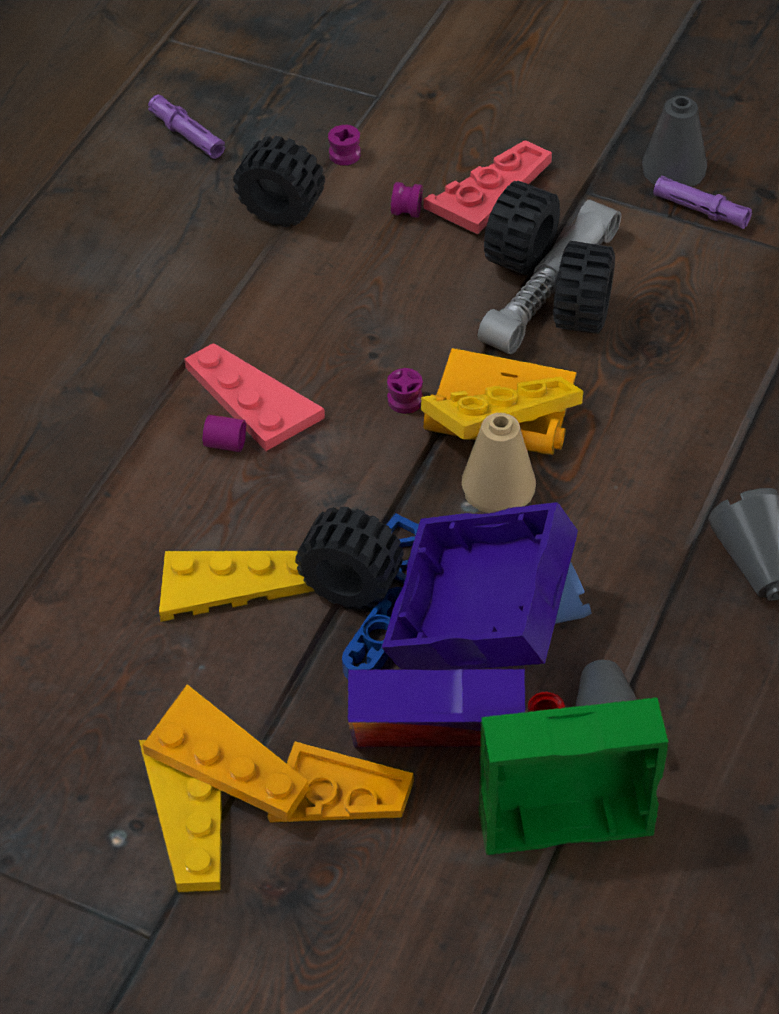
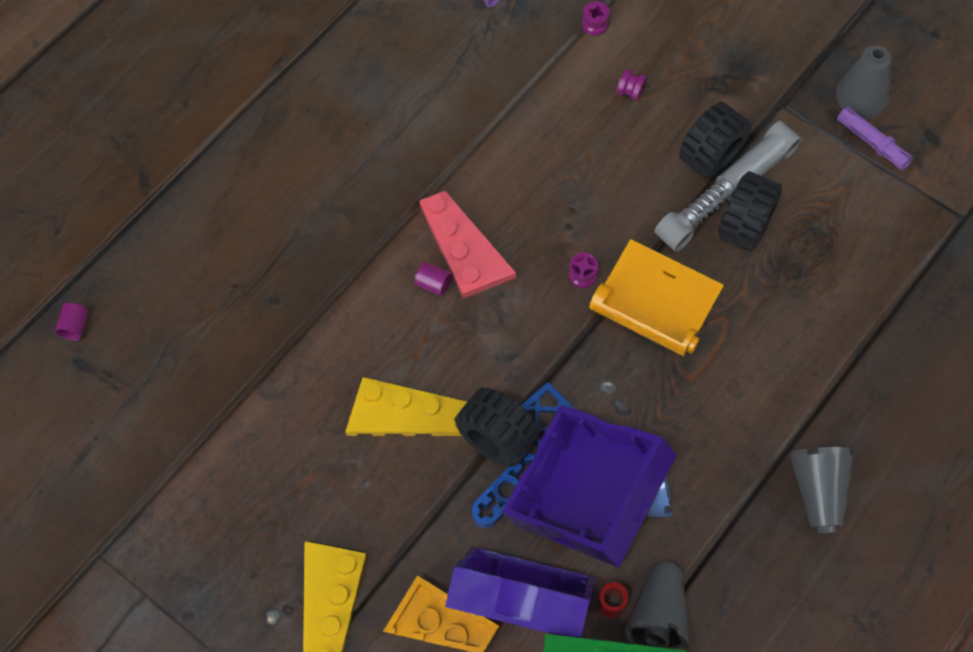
camera: 15 degrees right, 15 degrees up
(221, 753) = (359, 573): light orange wing -> none
(279, 181) = (531, 51): black tyre -> none
(474, 198) = (696, 91): coral wing -> none
(499, 467) = (636, 367): tan cone -> none
(531, 400) = (639, 314): yellow wing -> none

